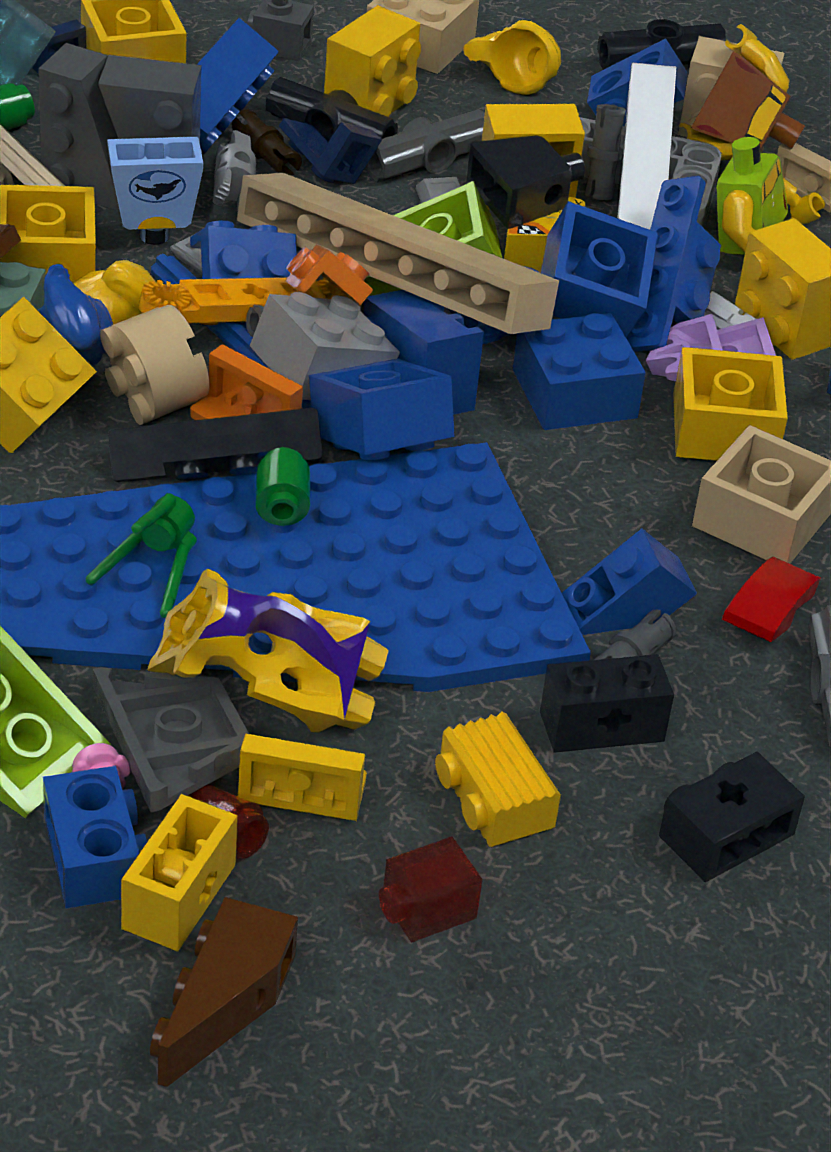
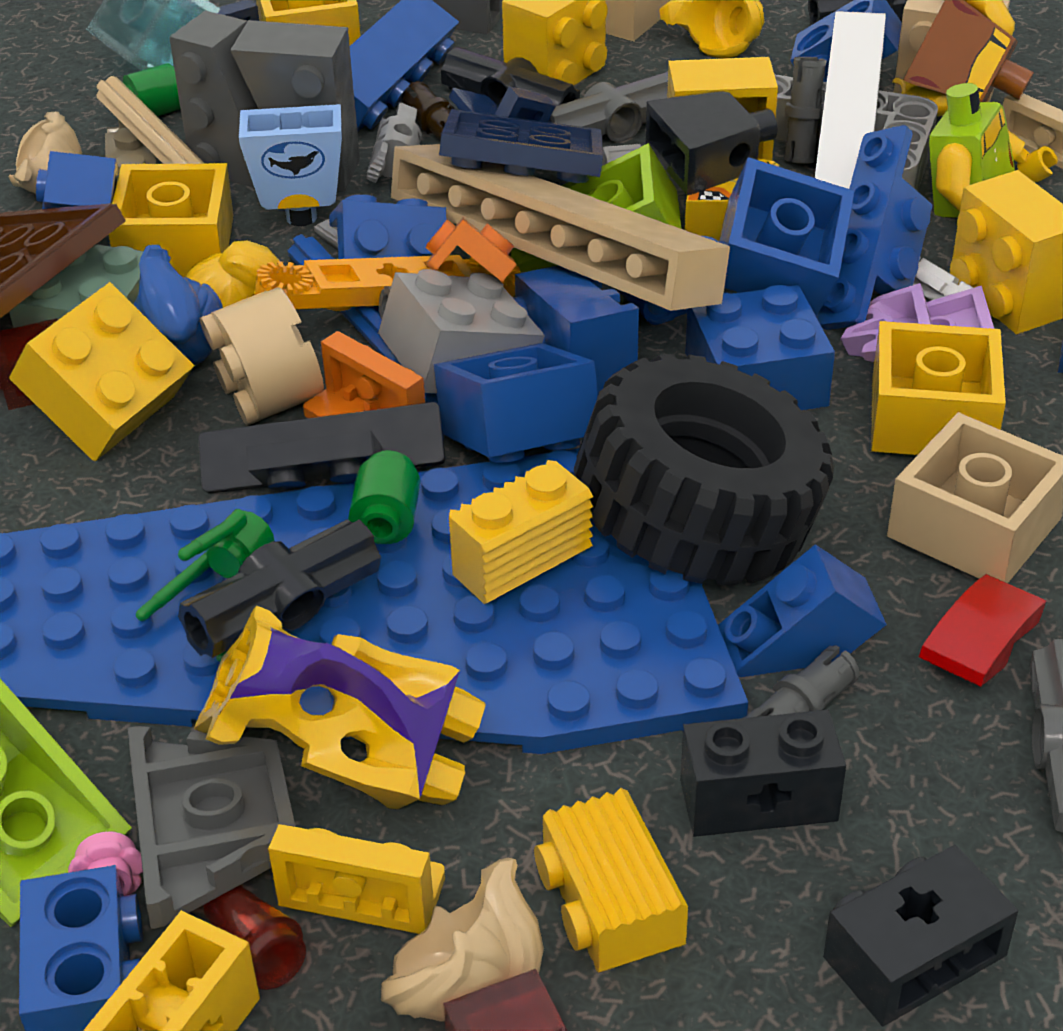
camera: 10 degrees right, 0 degrees up
(219, 547) = (282, 580): none -> black piece
(360, 178) = (522, 145): none -> dark blue plate
(396, 824) = (467, 948): none -> tan hair
(400, 515) = (520, 530): none -> yellow brick
(544, 467) = (703, 469): none -> black tyre

